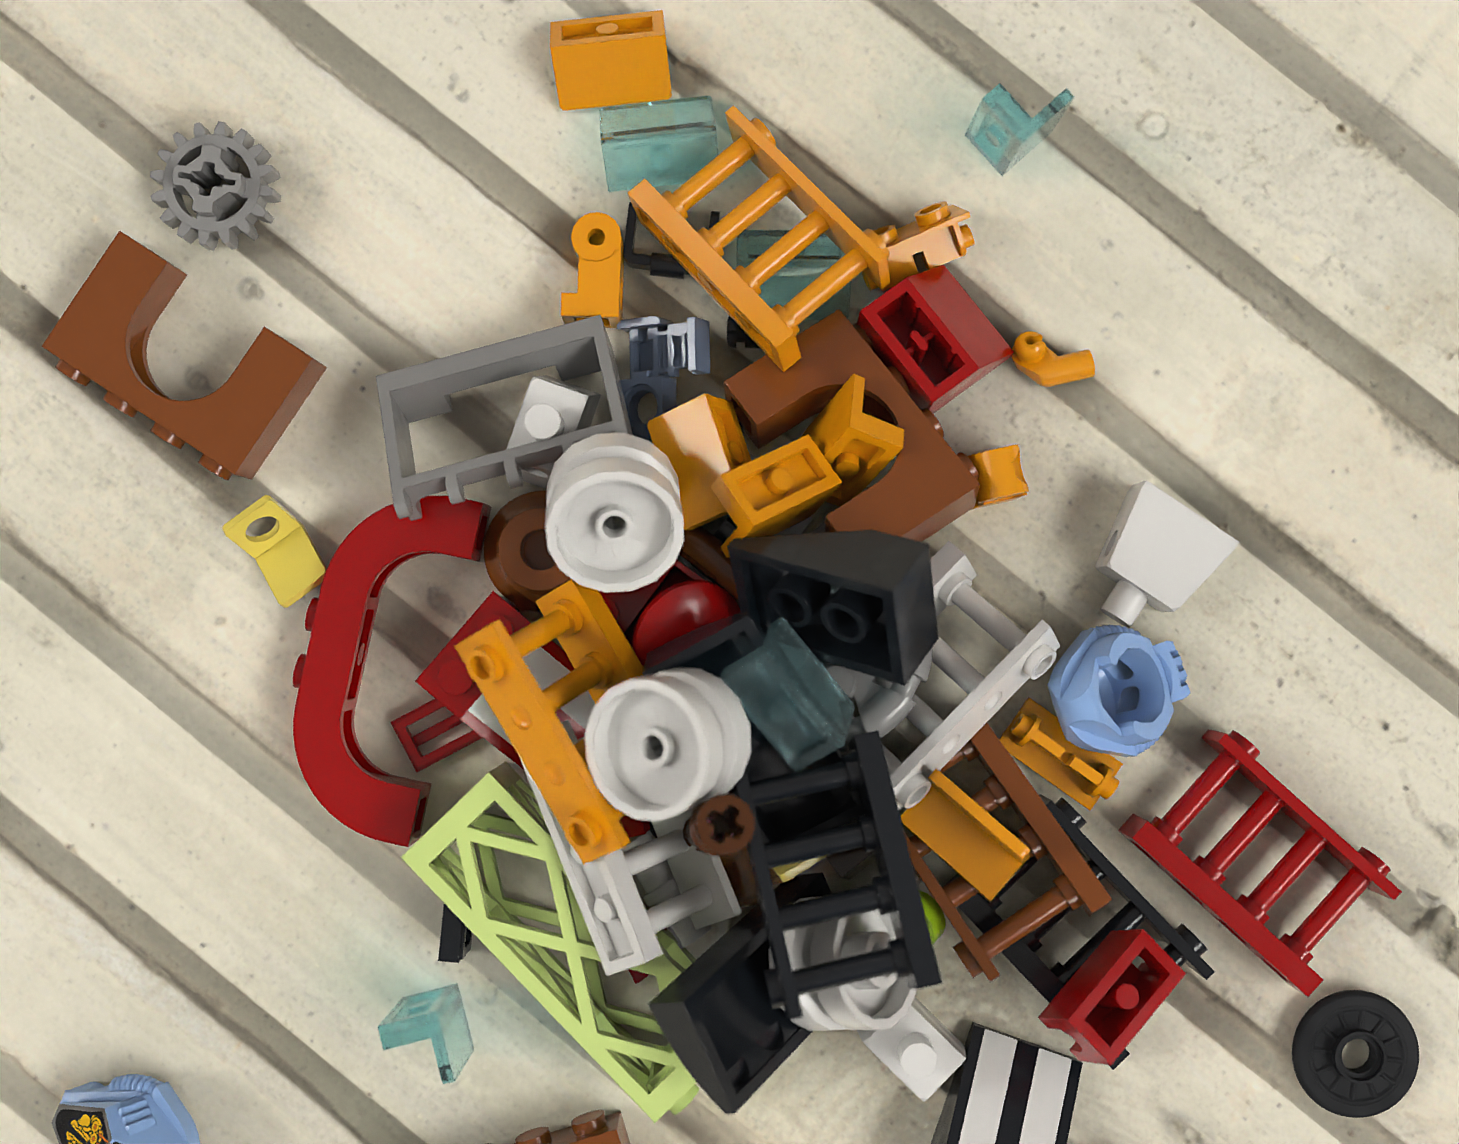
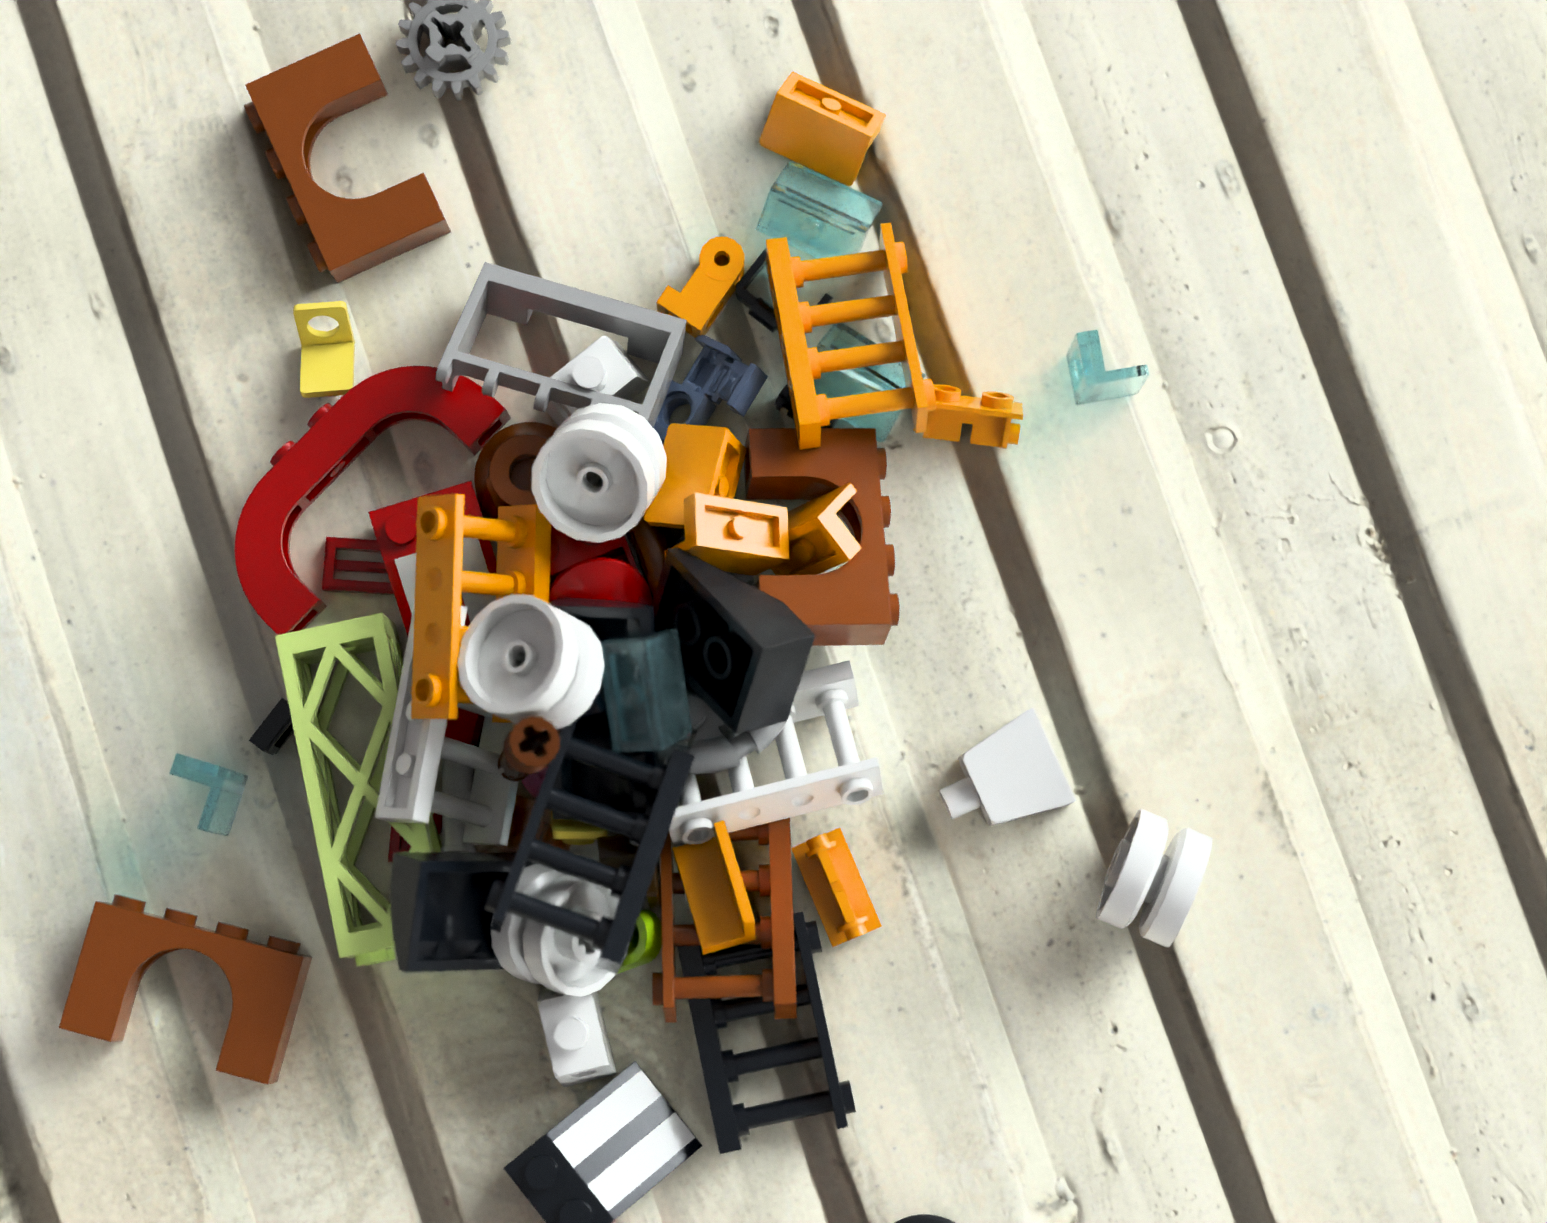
camera: 30 degrees right, 5 degrees down
(933, 336) = (937, 496): red slope -> none
(999, 476) = (914, 633): light orange leg -> none
(1046, 367) = (1015, 574): light orange arm -> none
(1112, 997) = (752, 1083): red brick -> none
(1116, 690) = (909, 859): light blue helmet -> none
(1247, 915) = (905, 1105): red fence -> none
(1357, 569) = (1162, 881): none -> white wheel

